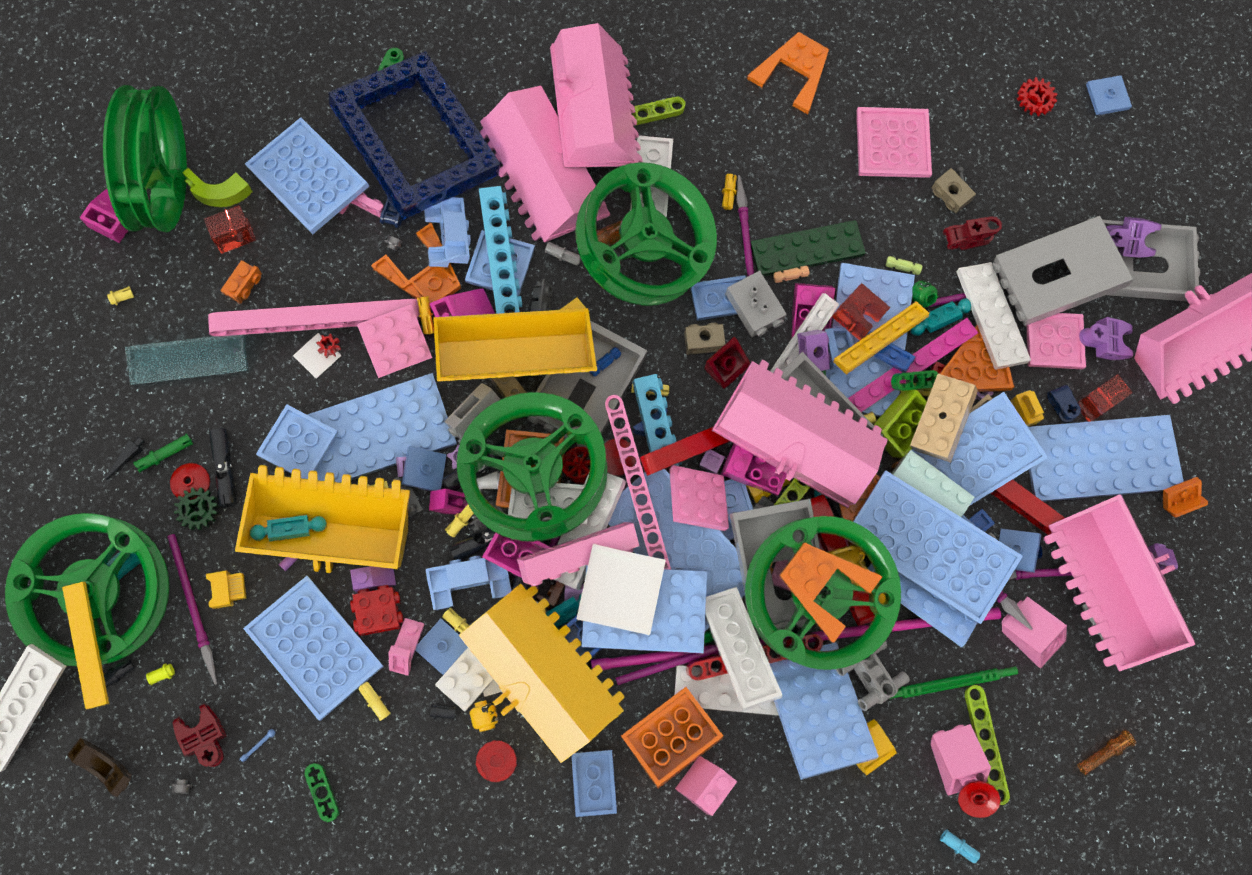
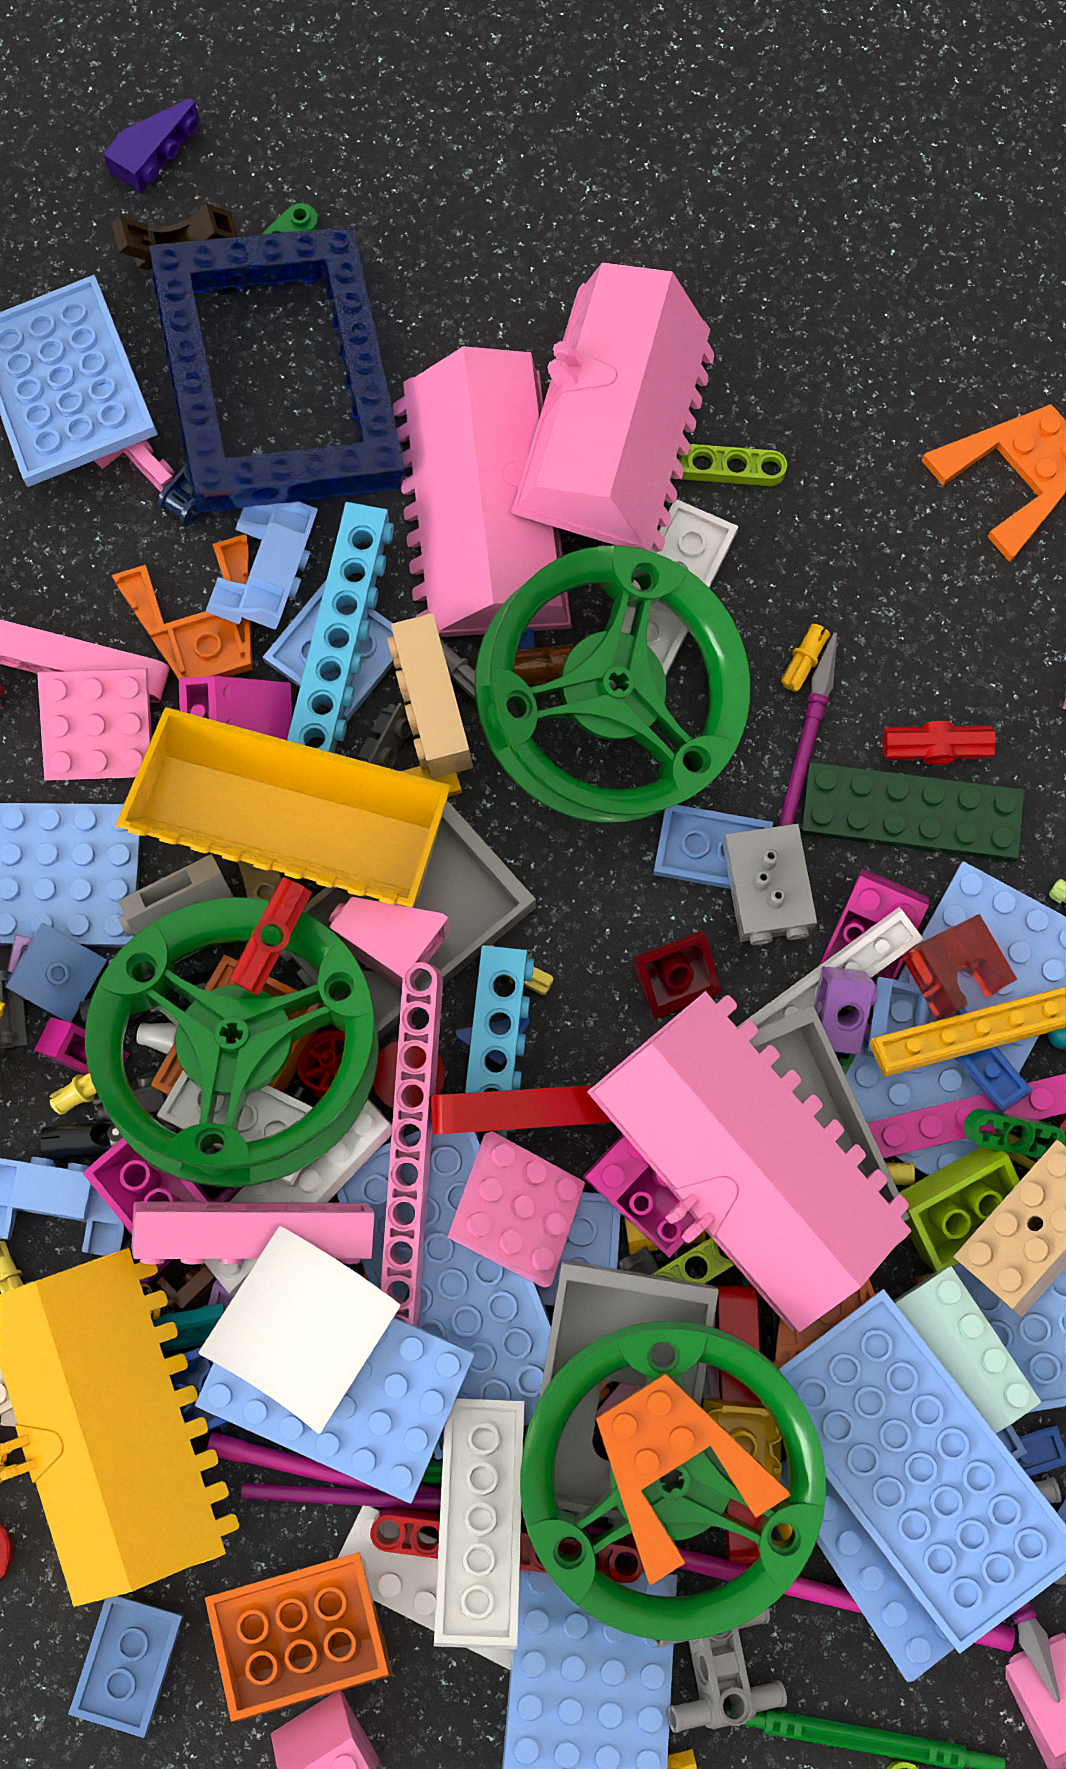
camera: 30 degrees right, 0 degrees up
(300, 43) = (148, 145): none -> dark purple slope
(319, 91) = (205, 224): none -> dark brown arch
(393, 243) = (166, 549): flat silver plate -> none
(426, 315) = (168, 687): yellow axle -> none
(534, 396) = (282, 913): none -> red piece
(559, 269) = (433, 702): none -> tan brick
(587, 390) = (389, 935): none -> bright pink slope
(606, 360) = (454, 891): blue axle -> none
(696, 345) = (632, 921): dark tan brick -> none
(711, 461) = (576, 1147): lavender plate -> none
(791, 274) = (862, 849): light nougat axle -> none
(808, 211) = (938, 742): none -> red piece

